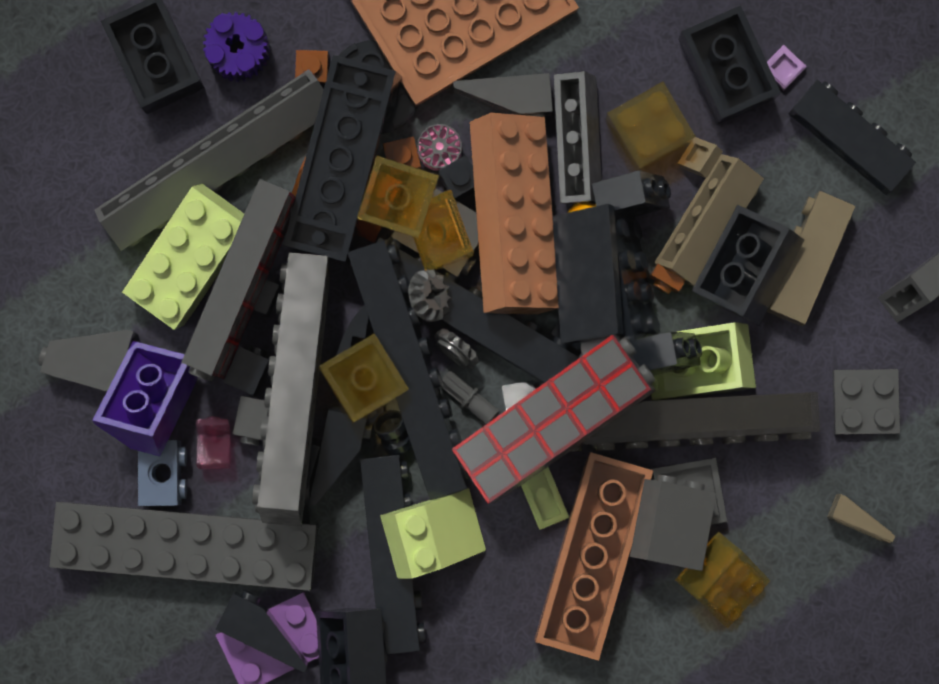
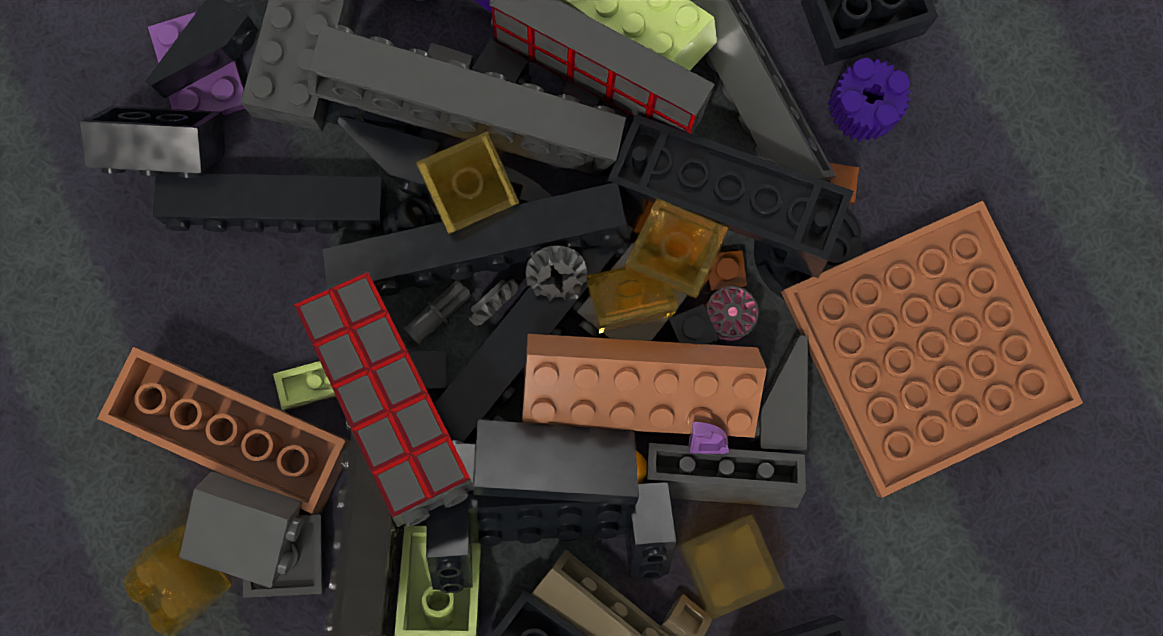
camera: 90 degrees right, 5 degrees down
(213, 443) = (425, 26): clear pink bracket -> none
(433, 534) = (279, 246): yellowish green slope -> none
(552, 154) = (707, 439): none -> medium lavender tile
(666, 280) = (542, 561): dark orange plate -> none

